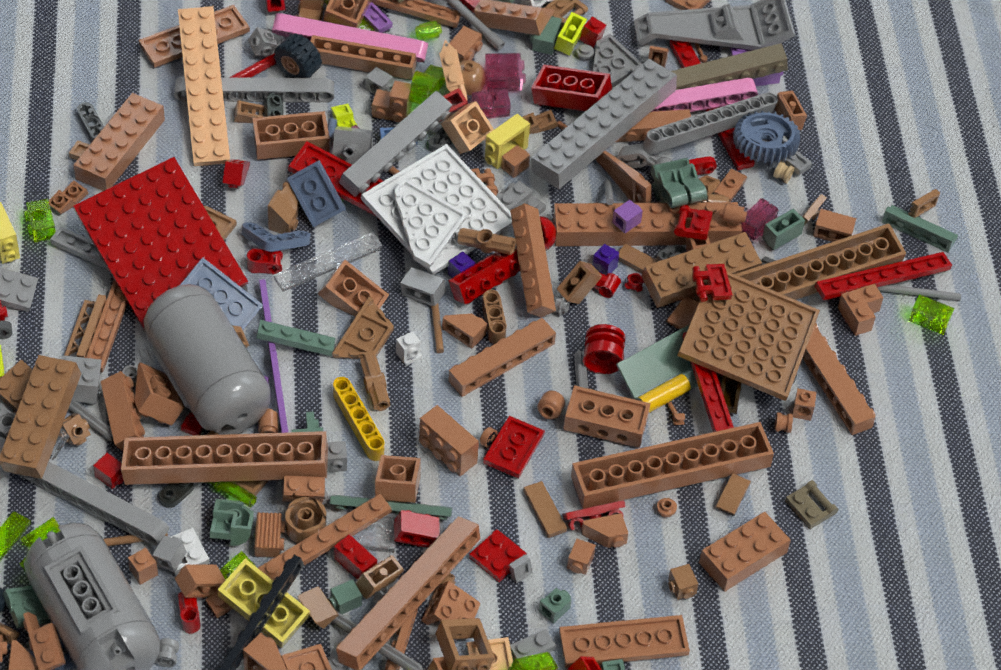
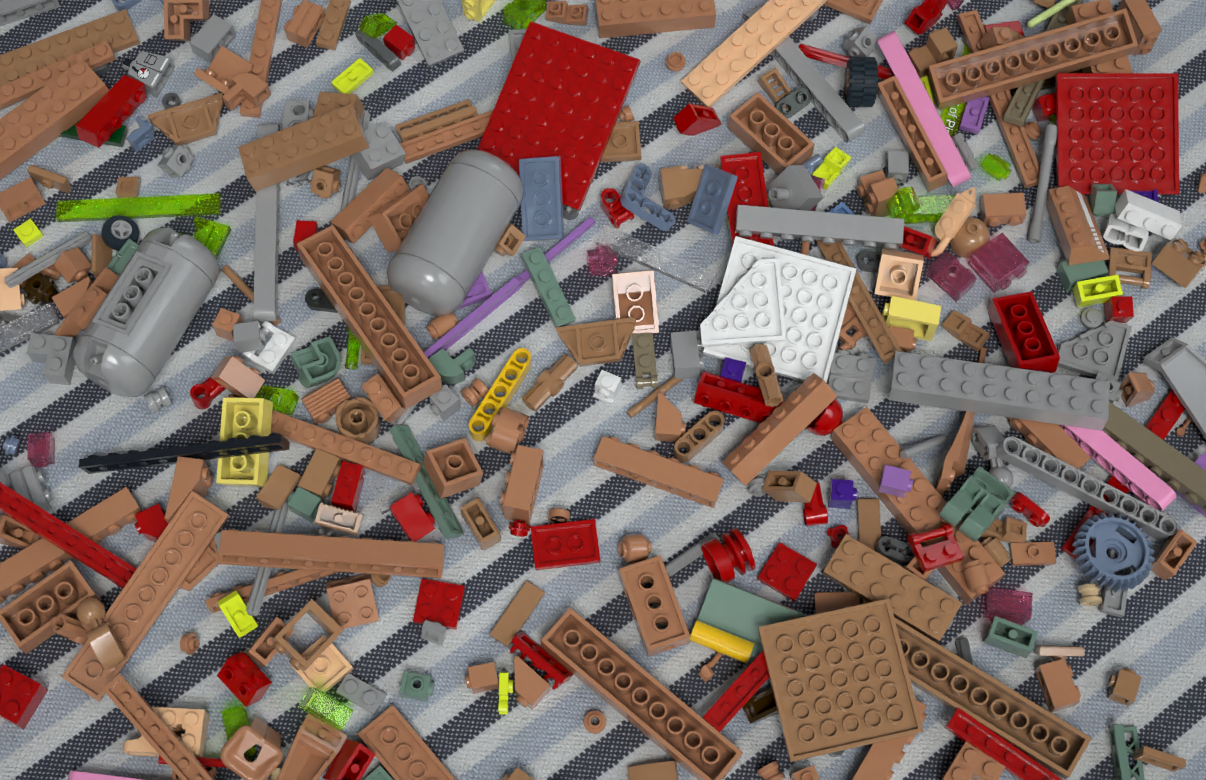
camera: 60 degrees right, 15 degrees up
(173, 152) = (675, 61): none -> nougat plate
(303, 293) = (602, 261): none -> clear pink brick
(327, 570) = (321, 474): none -> medium nougat brick
(342, 431) = (474, 392): none -> nougat wheel
(396, 426) = (508, 430): none -> nougat brick
(406, 317) = (644, 360): none -> dark tan plate
(457, 487) = (480, 524): none -> medium nougat brick
(477, 160) = (864, 305): none -> medium nougat plate
(478, 467) = (519, 528): none -> red plate
(603, 550) = (505, 688): none -> neon yellow plate
(639, 328) = (787, 572): none -> red plate
(717, 279) = (868, 613): red plate -> none
(861, 193) = (1124, 686): none -> medium nougat brick

